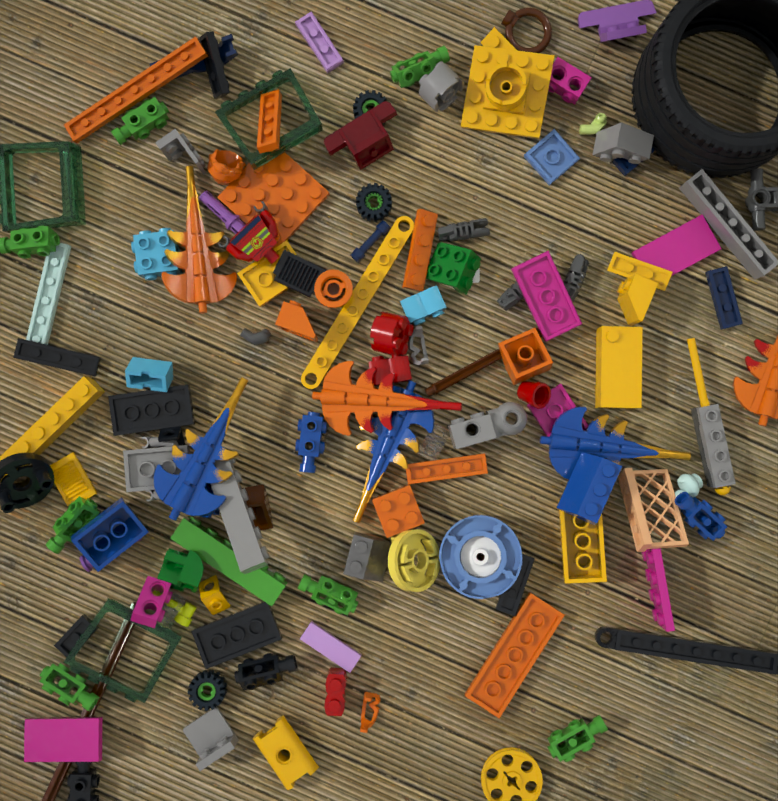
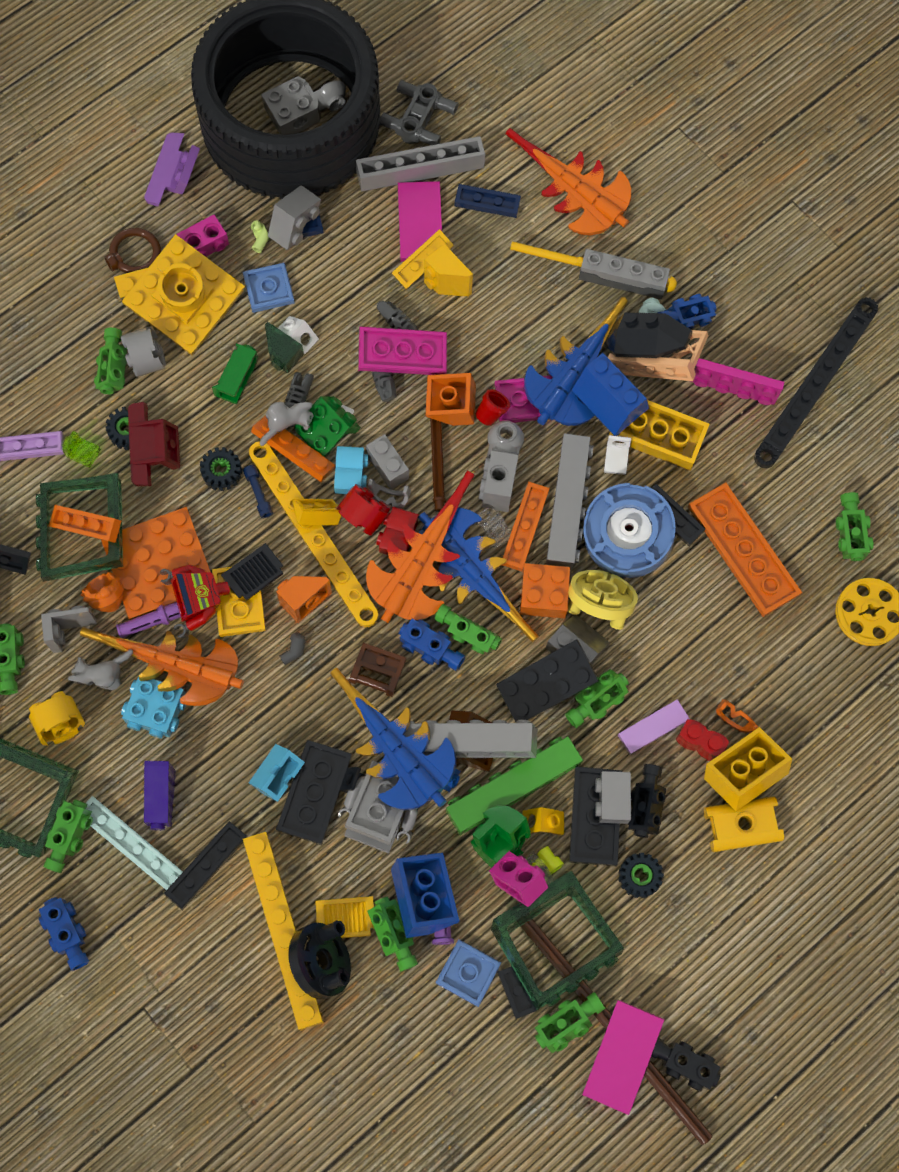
camera: 65 degrees left, 15 degrees down
(74, 592) = (468, 973): none -> medium blue tile
(90, 294) = (158, 794): none -> dark purple slope
(108, 186) = (56, 719): none -> yellow brick
(160, 202) = (103, 674): none -> light grey animal
(210, 737) = (692, 895): light grey bracket -> none
(253, 645) = (614, 797): none -> light grey brick
(277, 409) = (380, 662): none -> reddish brown plate
(321, 550) = (548, 682): none -> black plate
(326, 740) = (747, 769): none -> yellow brick
(332, 470) = (472, 633): none -> bright green brick
(333, 288) = (289, 543): orange piece -> none
(335, 83) = (80, 449): none -> clear neon green bracket
(374, 296) = (316, 511): none -> yellow slope
(437, 229) = (282, 417): none -> light grey animal
(445, 331) = (387, 462): none -> light grey brick
(461, 172) = (236, 374): none -> green window
(485, 493) = (568, 501): none -> light grey brick
(500, 196) = (283, 349): none -> clear green slope
(524, 198) = (296, 328): none -> white bracket
(543, 515) = (617, 455): none -> white bracket
(618, 367) = (506, 321): yellow brick -> none
(659, 494) = (647, 335): none -> black wedge
(729, 94) = (296, 106): none -> light grey brick

